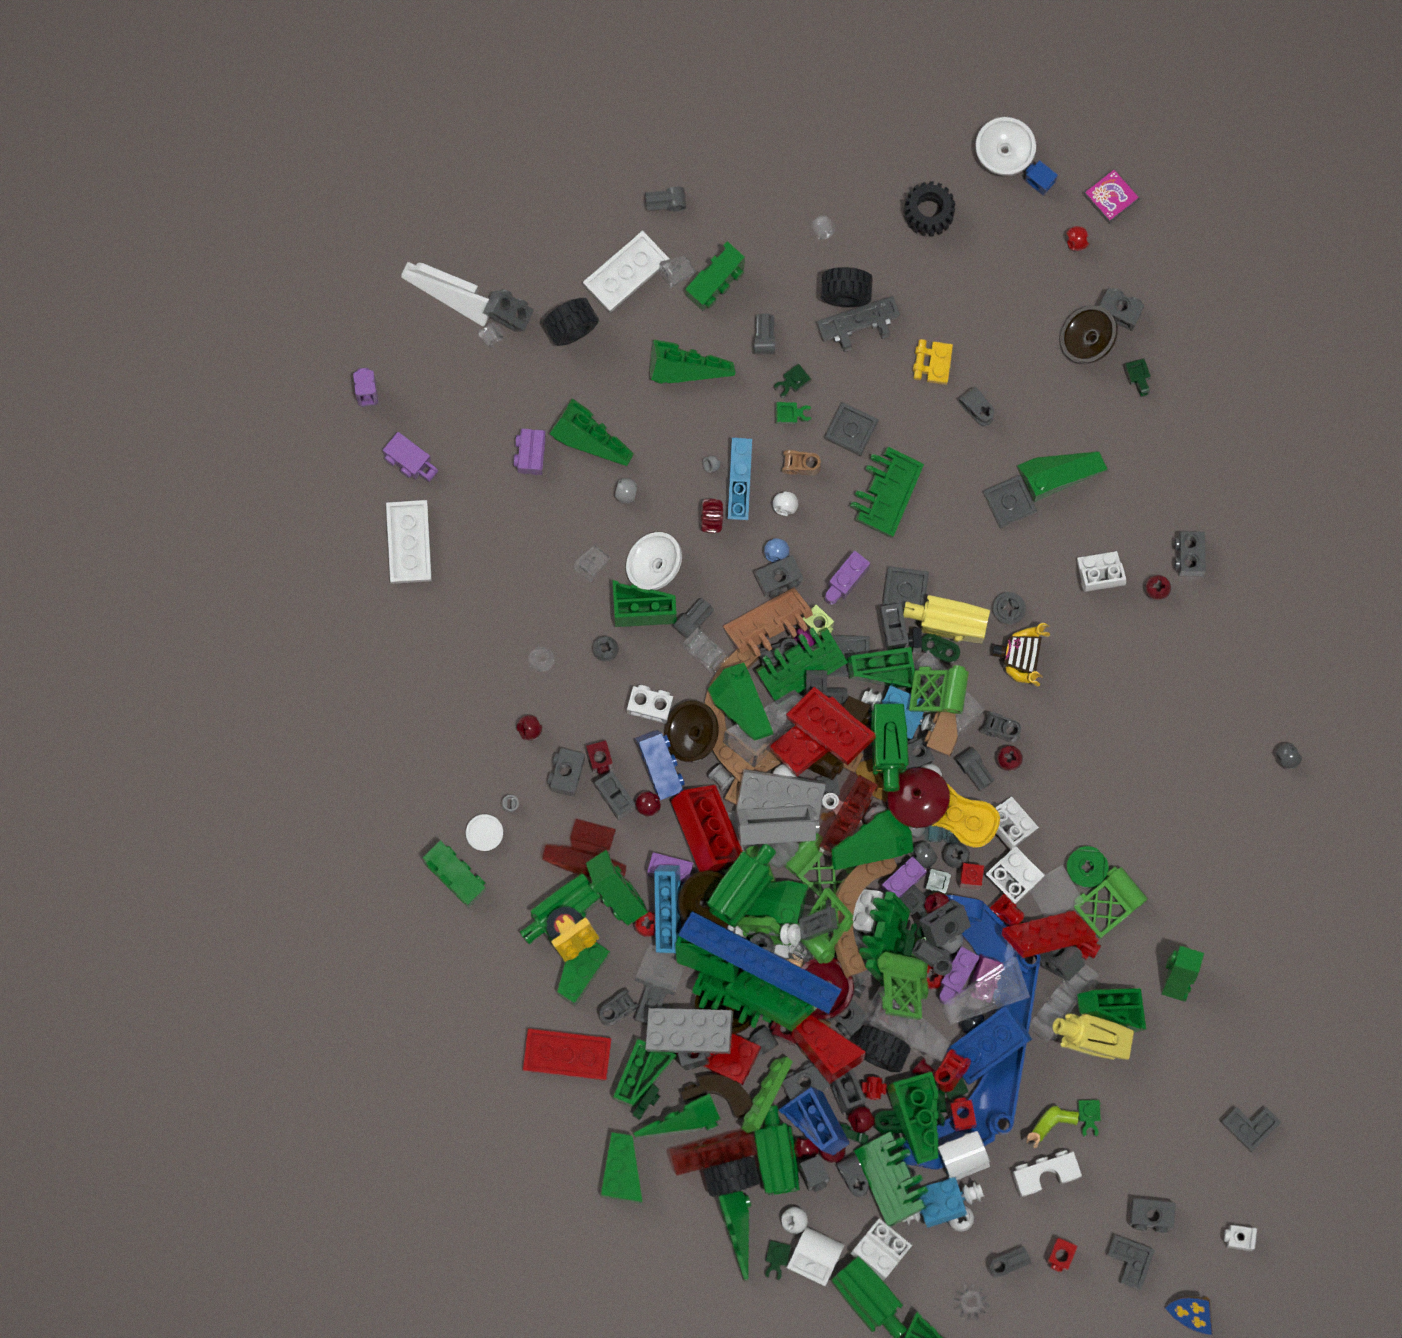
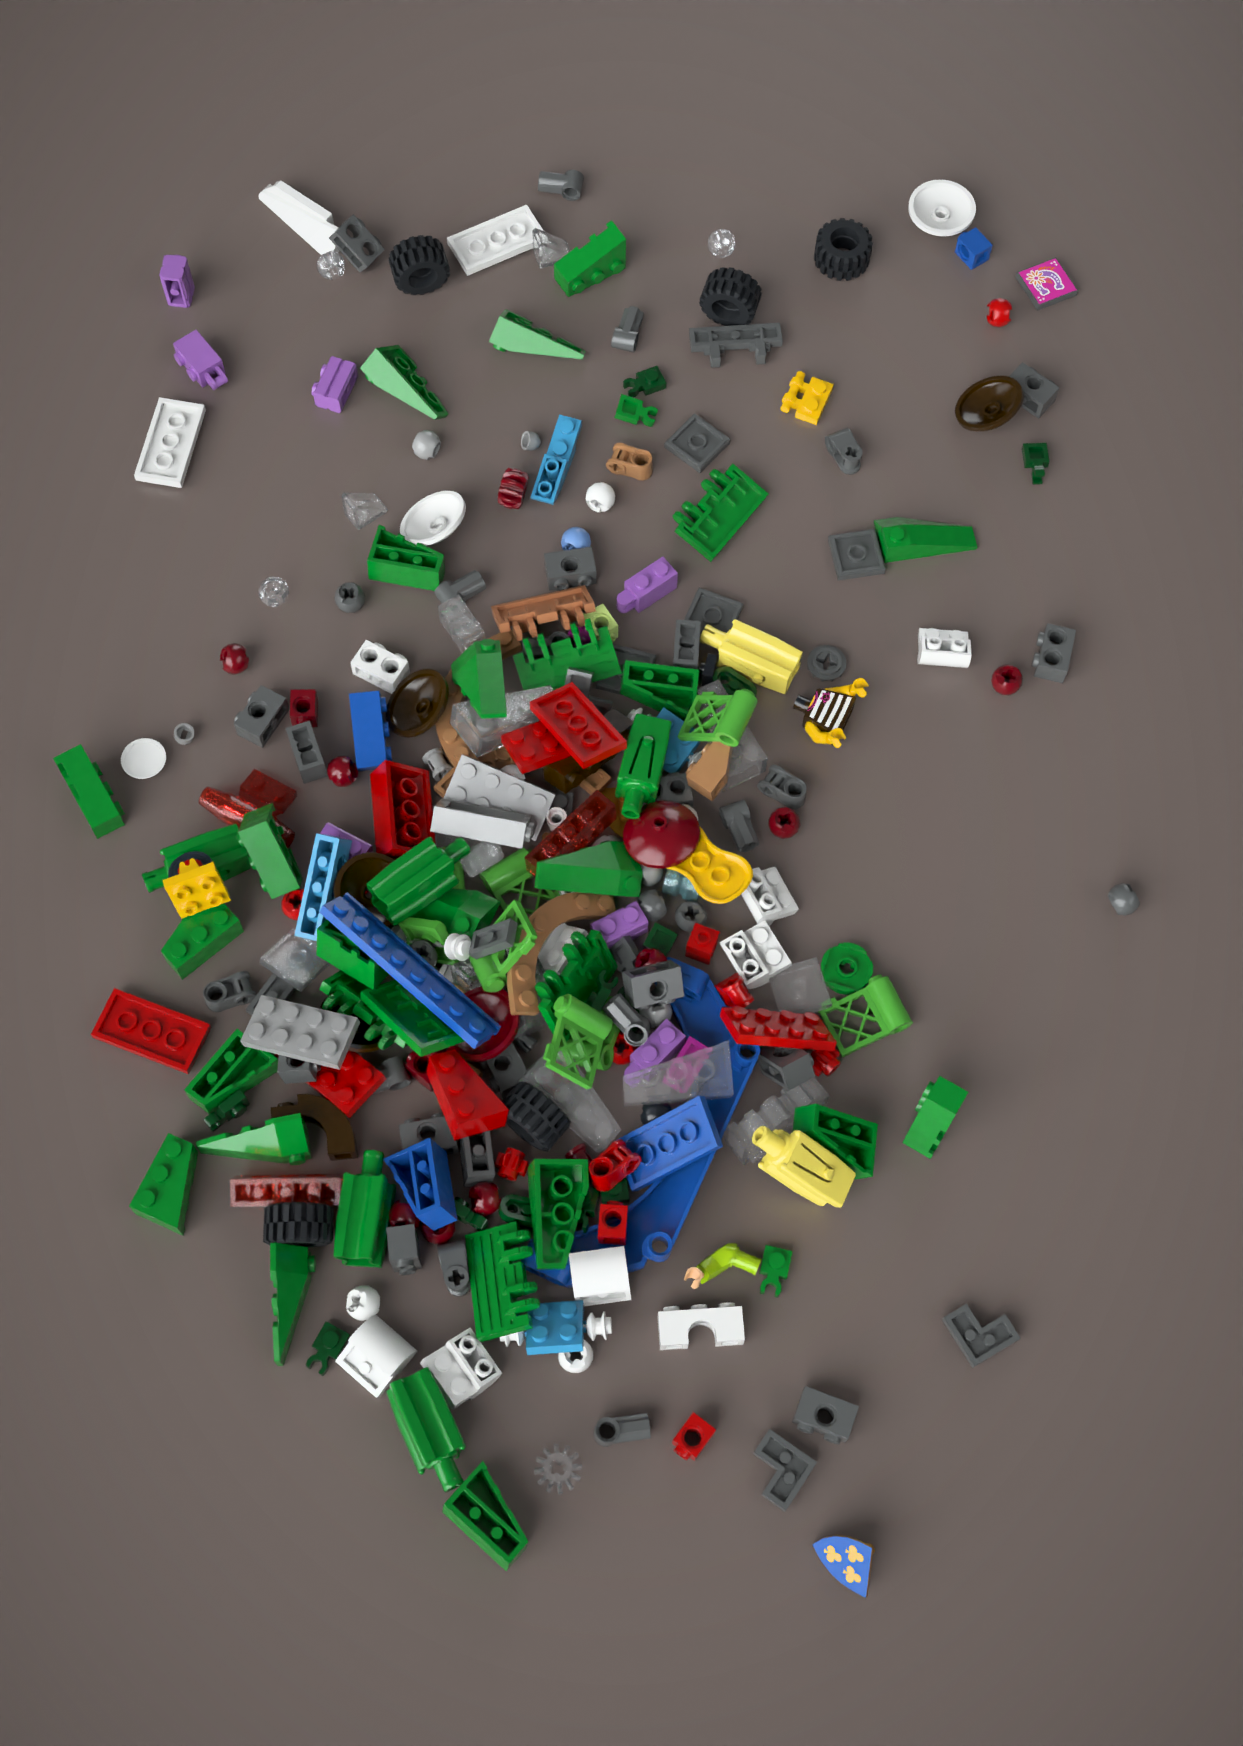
camera: 15 degrees right, 10 degrees down
(767, 1094) = (368, 1140): bright green plate -> none
(1247, 1244) = (940, 1486): white brick -> none

